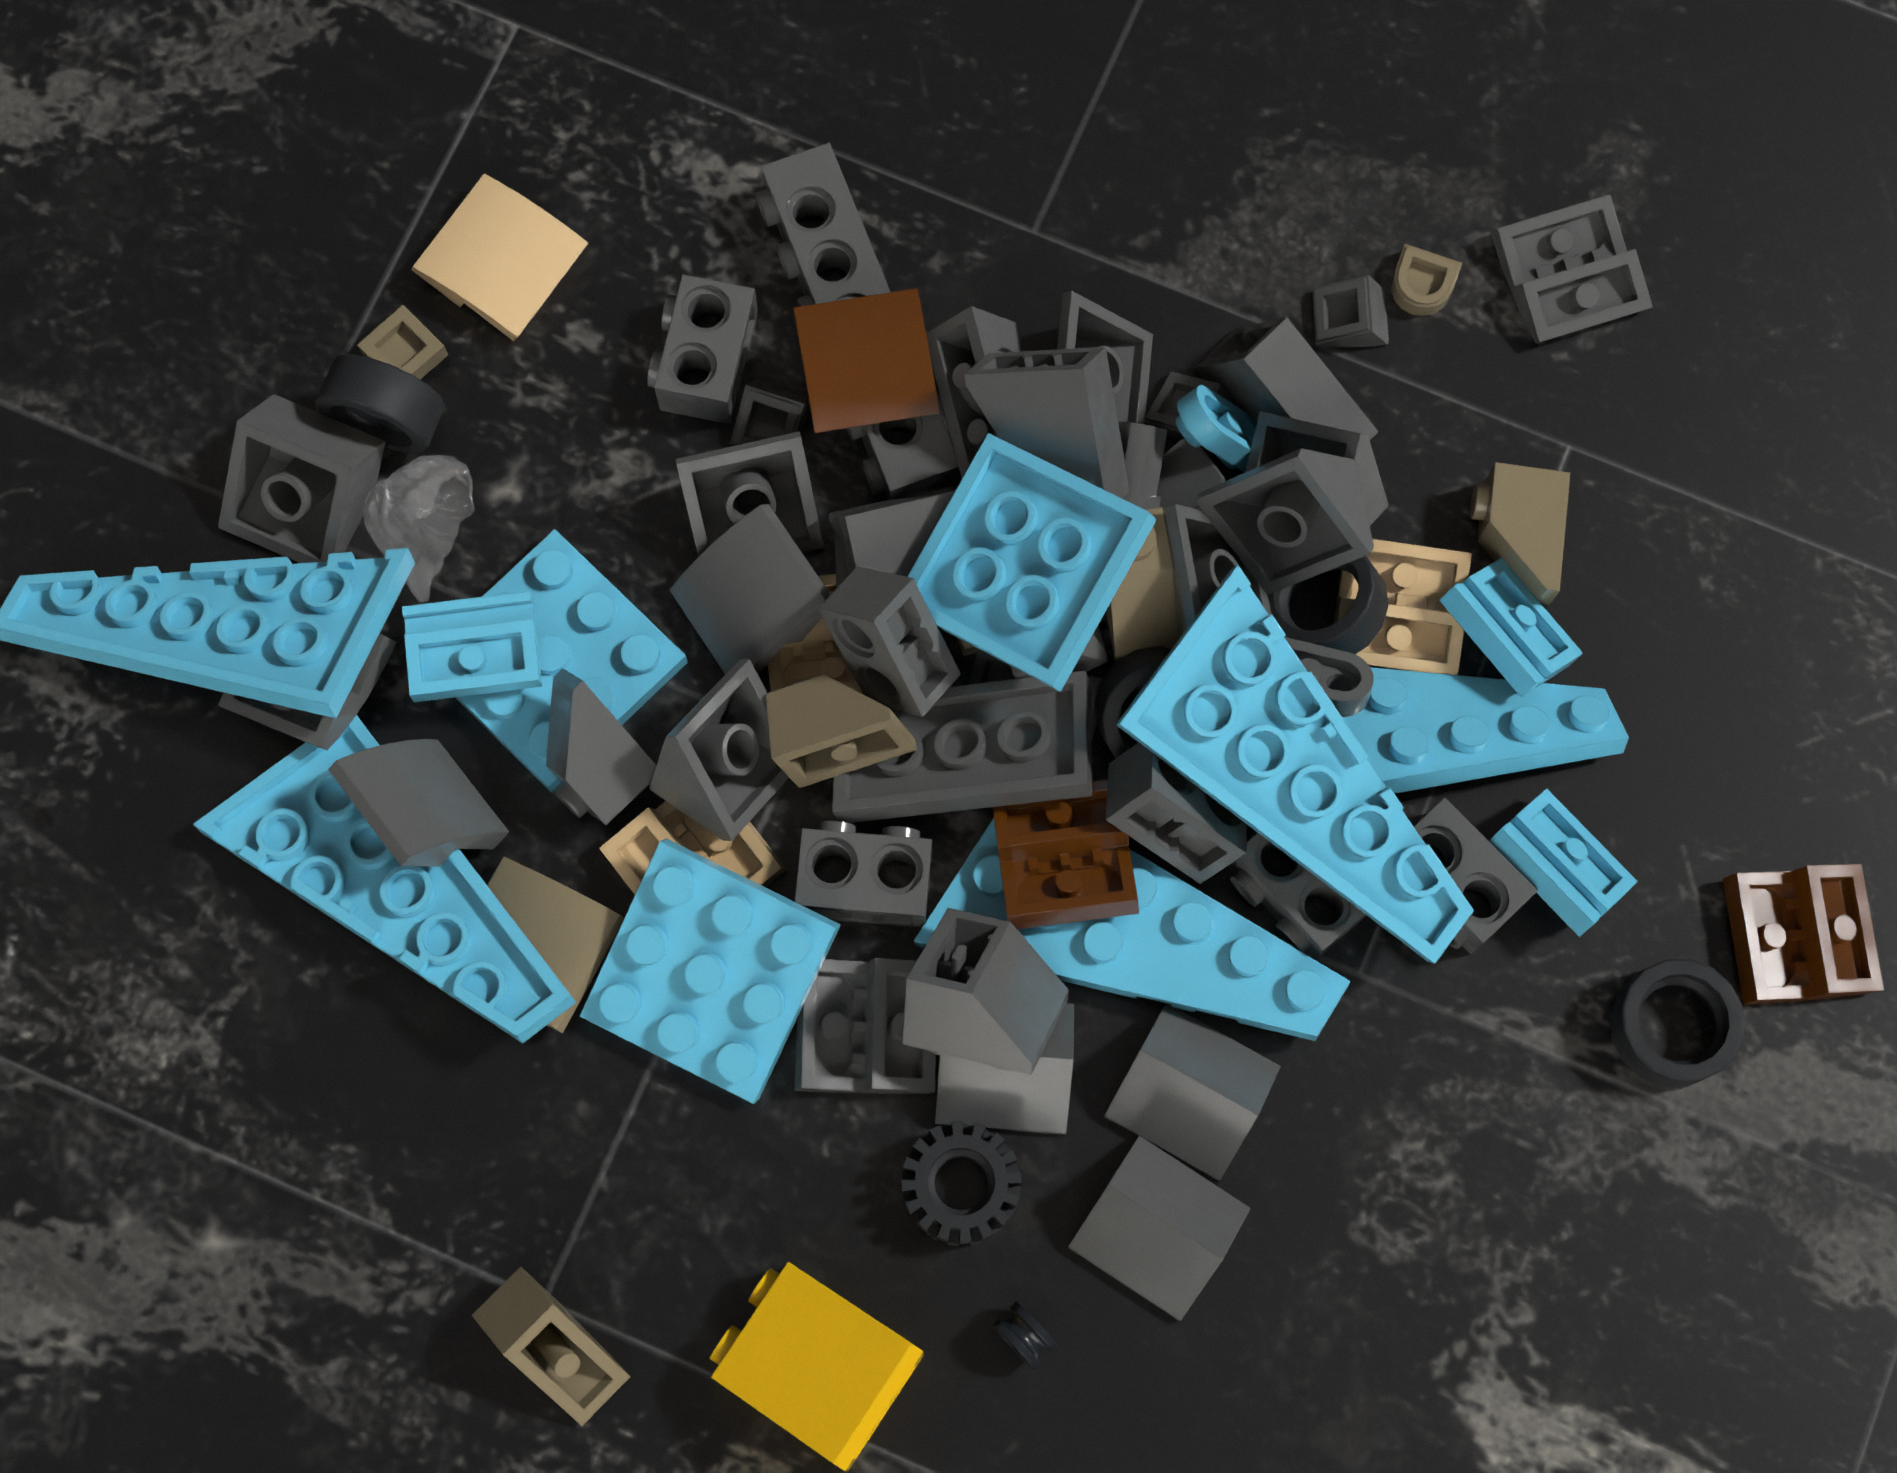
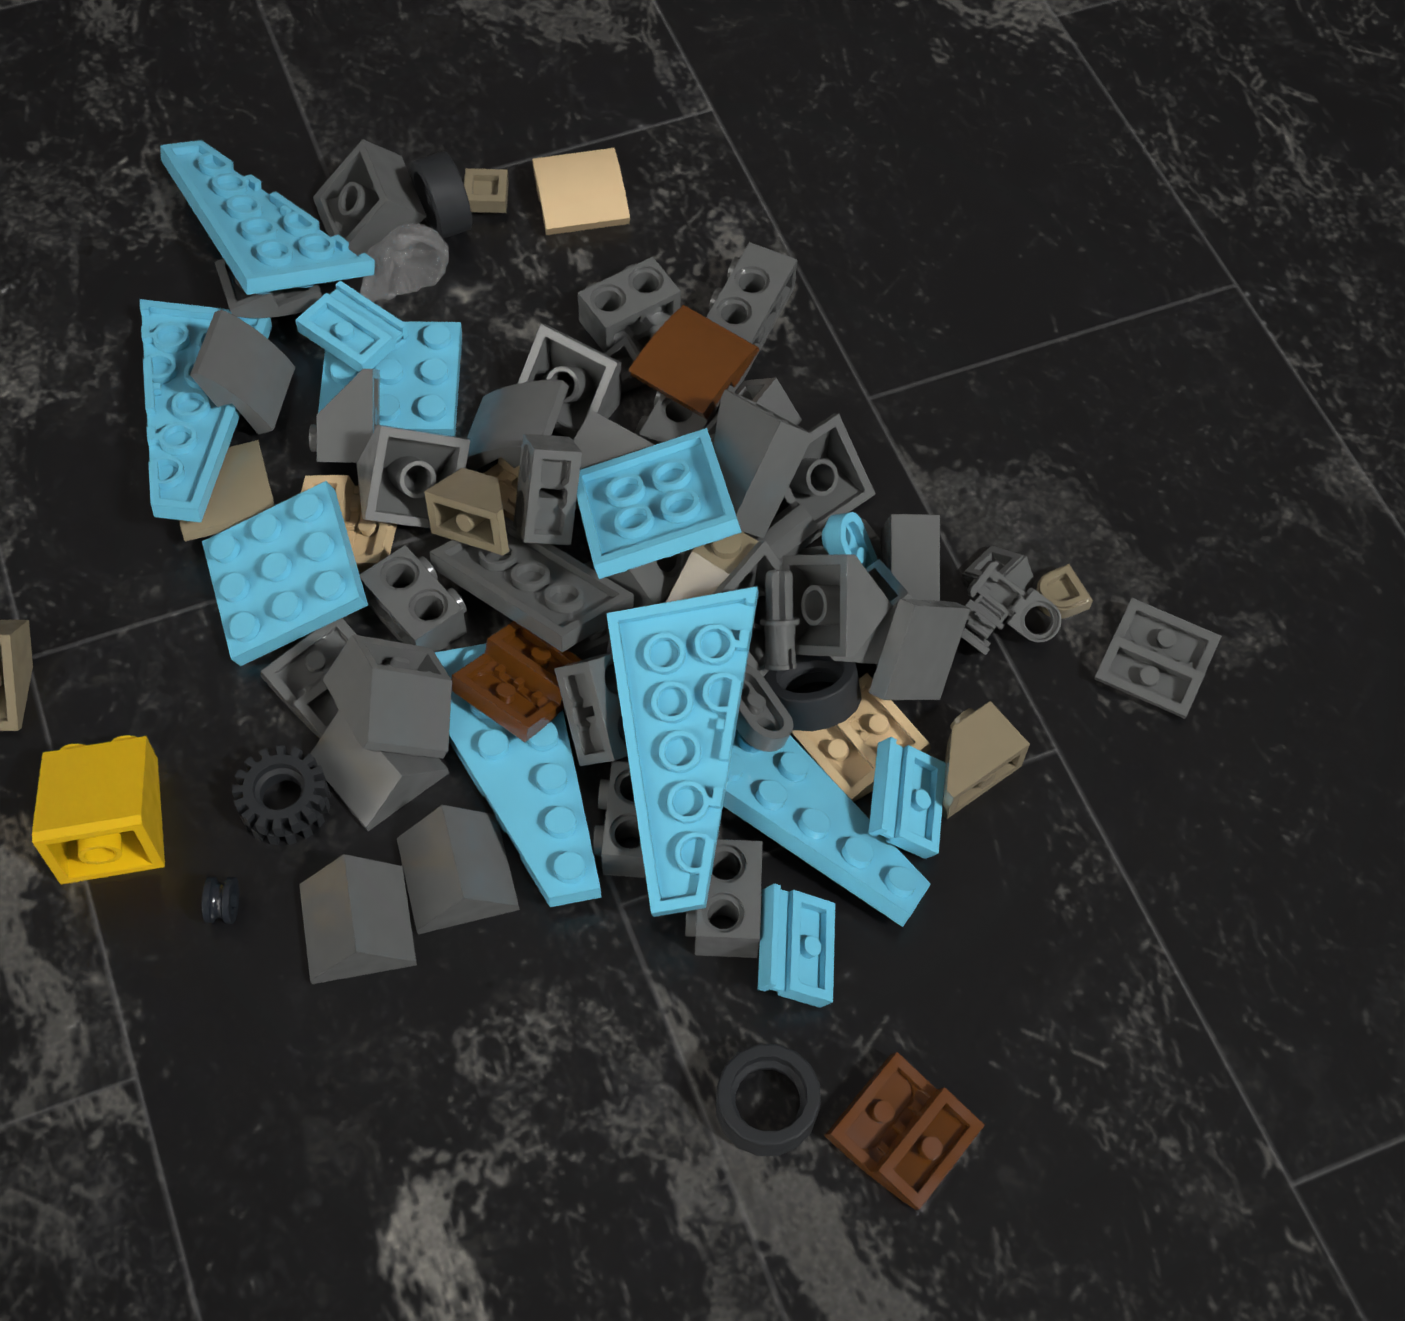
camera: 45 degrees right, 15 degrees down
(1260, 566) = (779, 621): none -> dark grey axle
(1390, 357) = (994, 605): none -> dark grey piece
(1396, 474) = (919, 650): none -> dark grey tile

